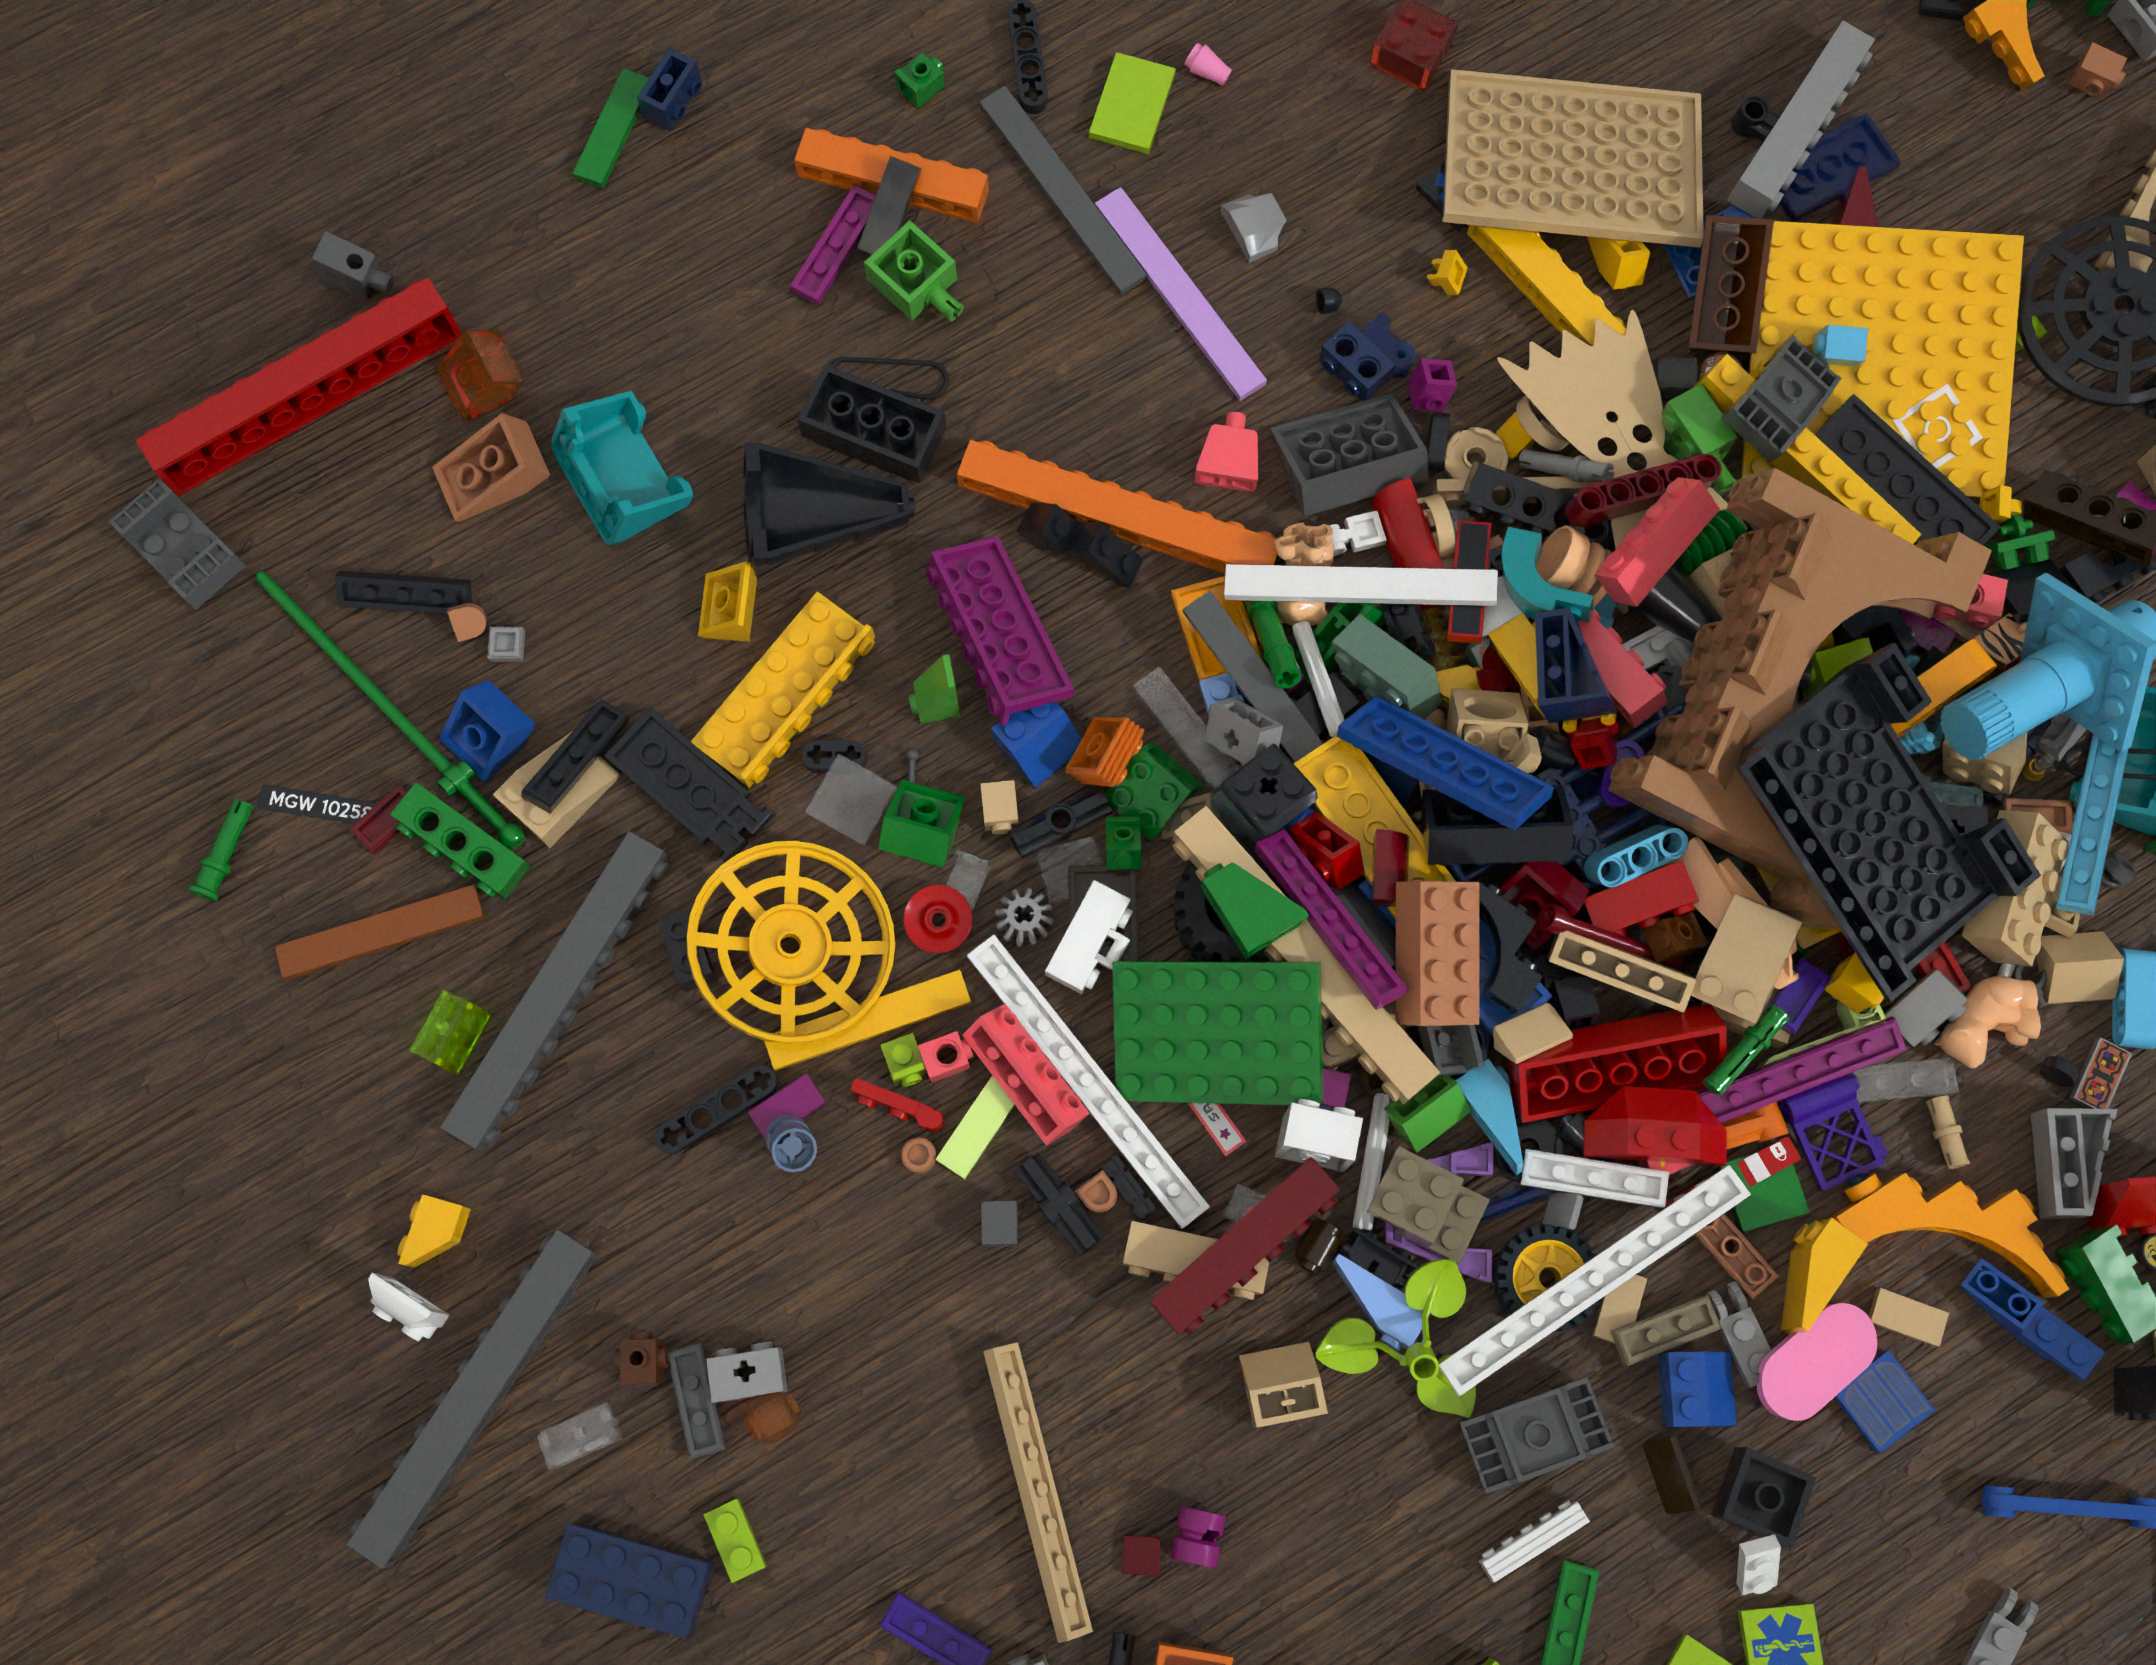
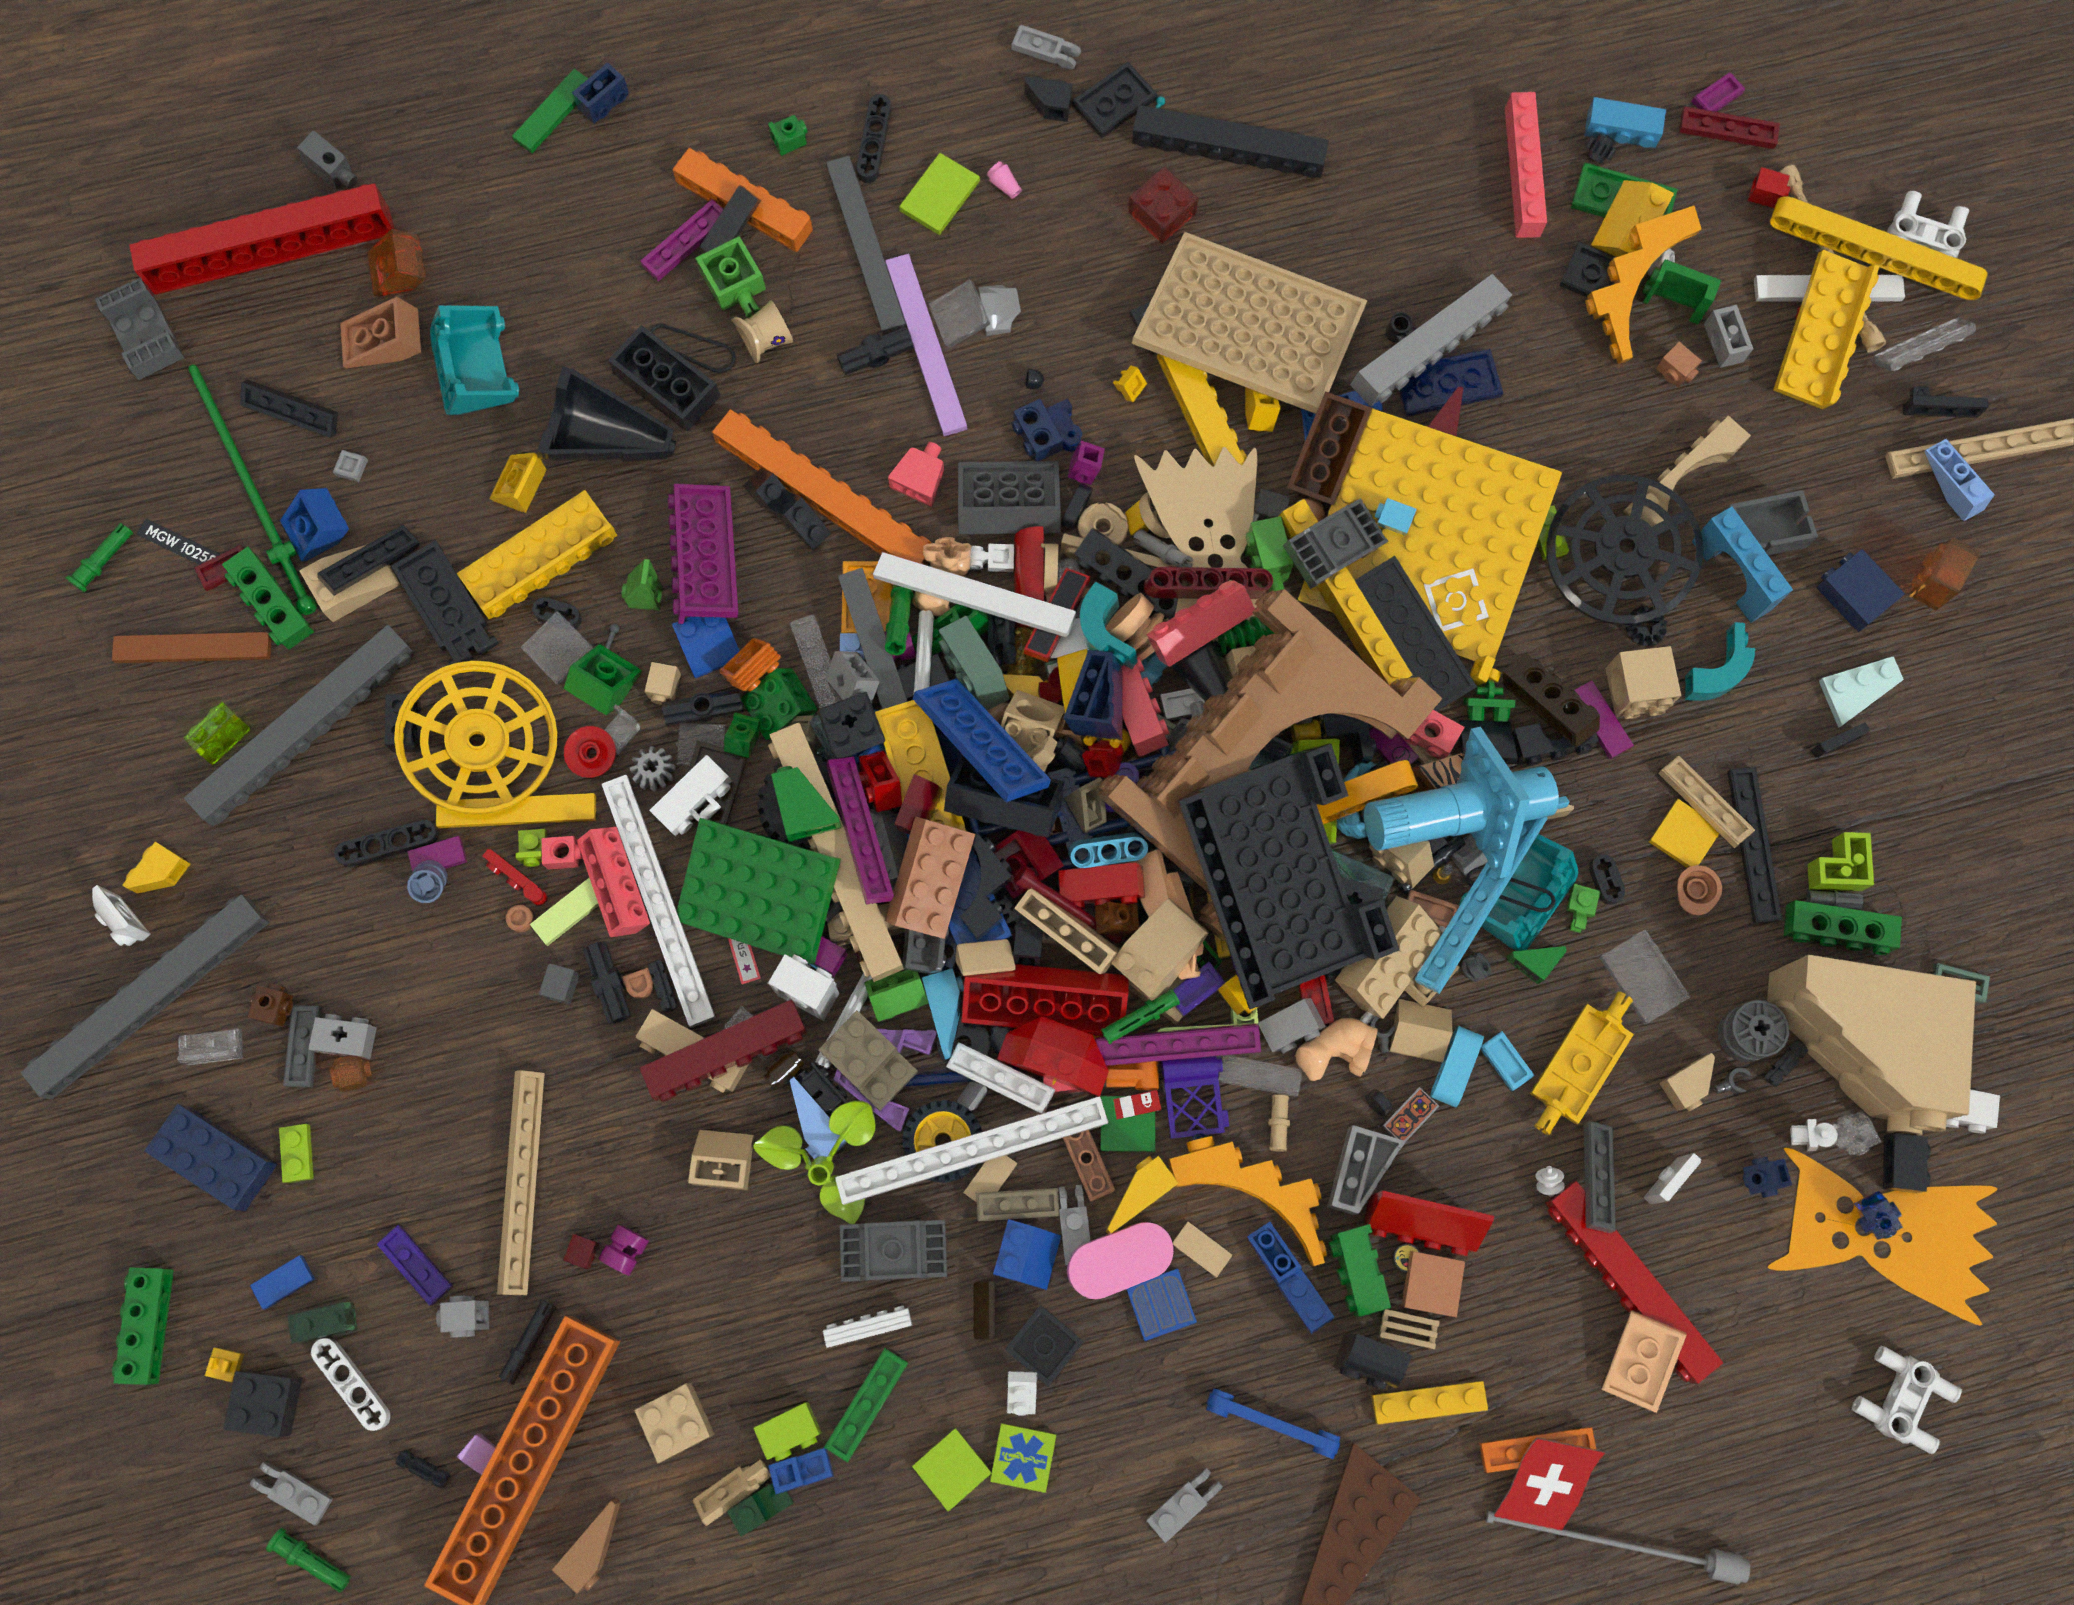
camera: 15 degrees right, 0 degrees up
(467, 621) = (326, 441): nougat tile -> none
(977, 330) = (763, 330): none -> tan hat
(1121, 318) = (875, 351): none -> black piece
(1211, 244) = (959, 314): none -> clear tile
(1595, 806) = (1088, 806): none -> dark tan slope

